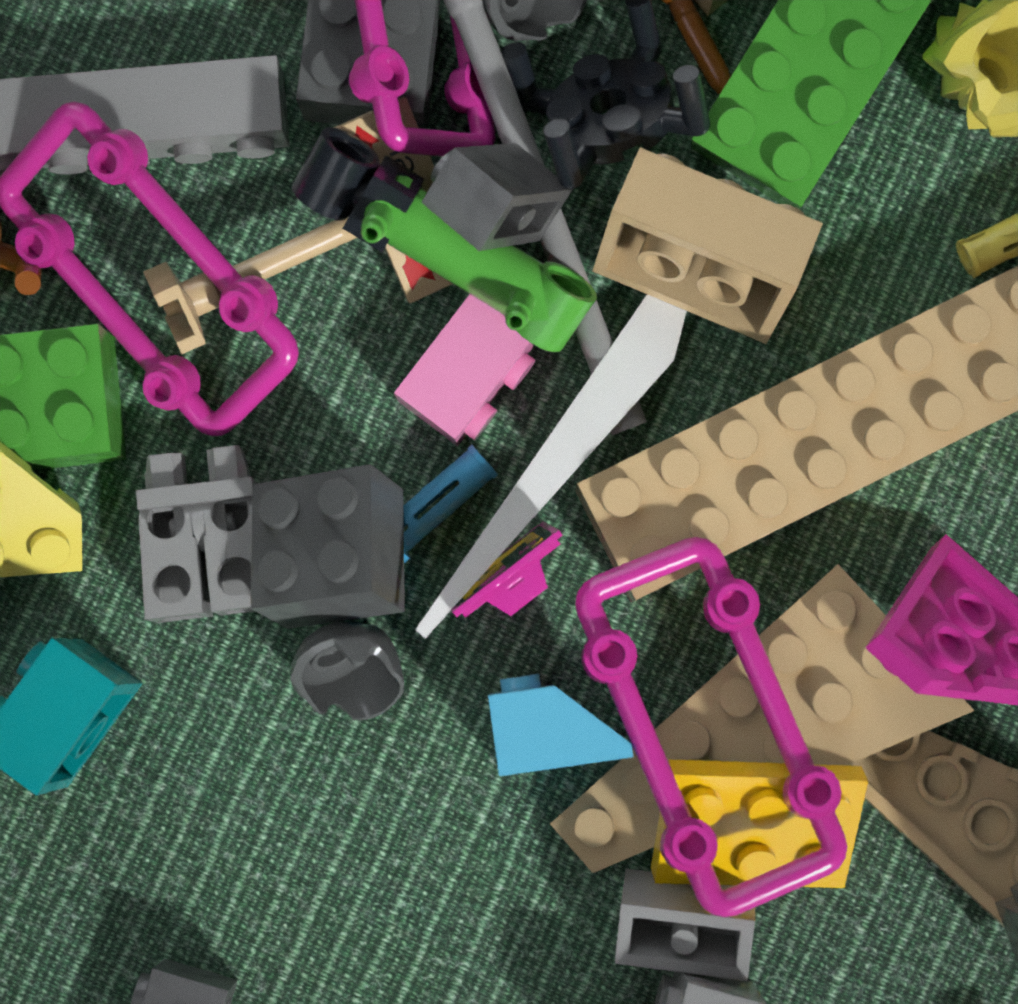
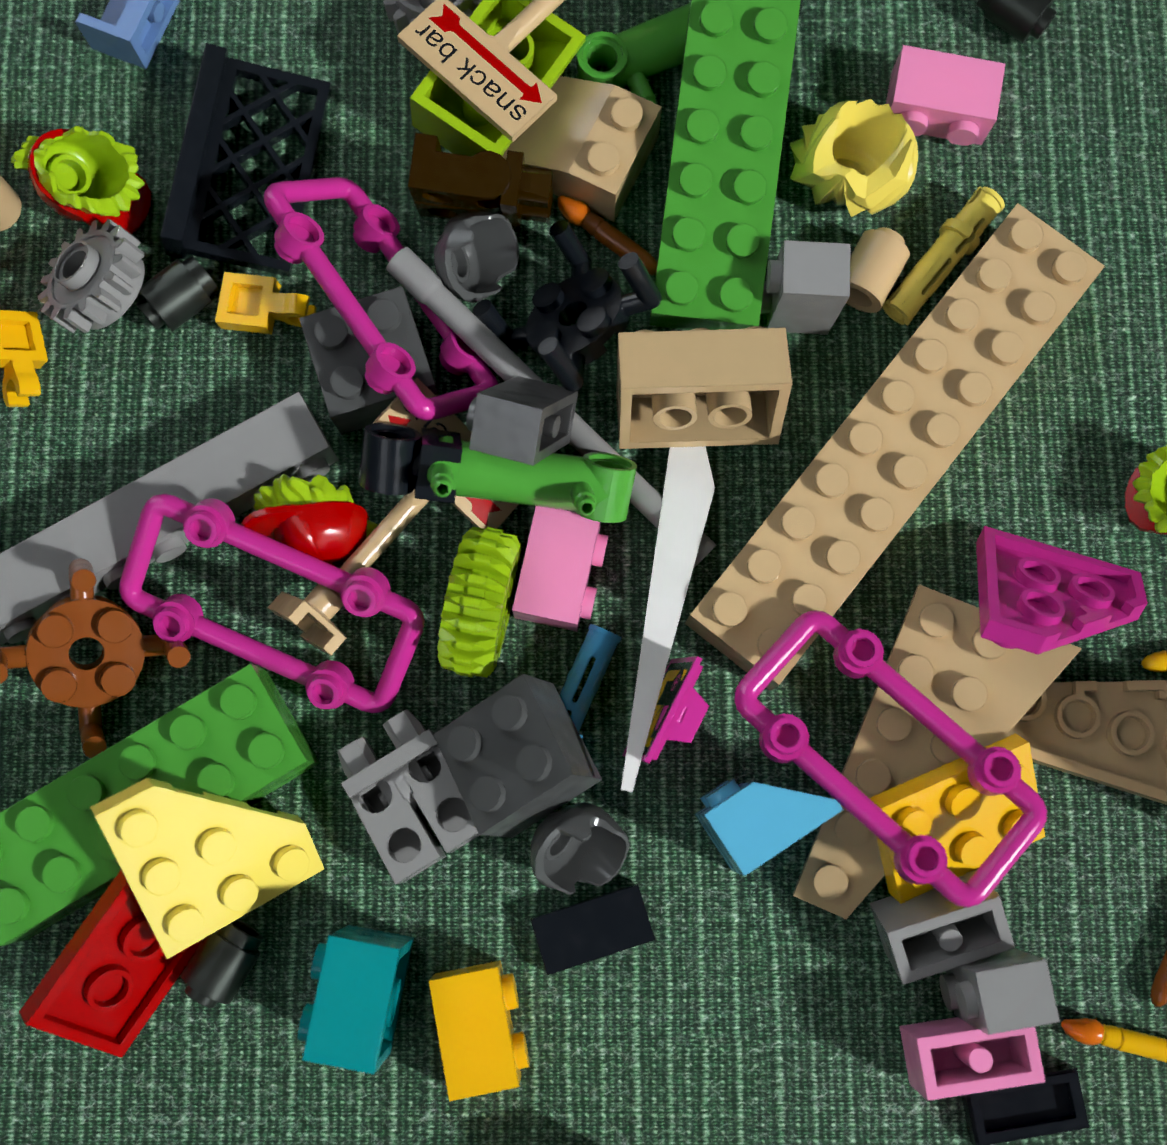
camera: 30 degrees left, 5 degrees down
(163, 804) = (477, 1030): none -> yellow brick
(228, 199) = (311, 517): none -> red hair
(328, 760) = (592, 929): none -> black tile
(363, 367) = (478, 602): none -> lime gear
(873, 186) = (807, 286): none -> light grey brick
(963, 198) = (875, 268): none -> tan brick

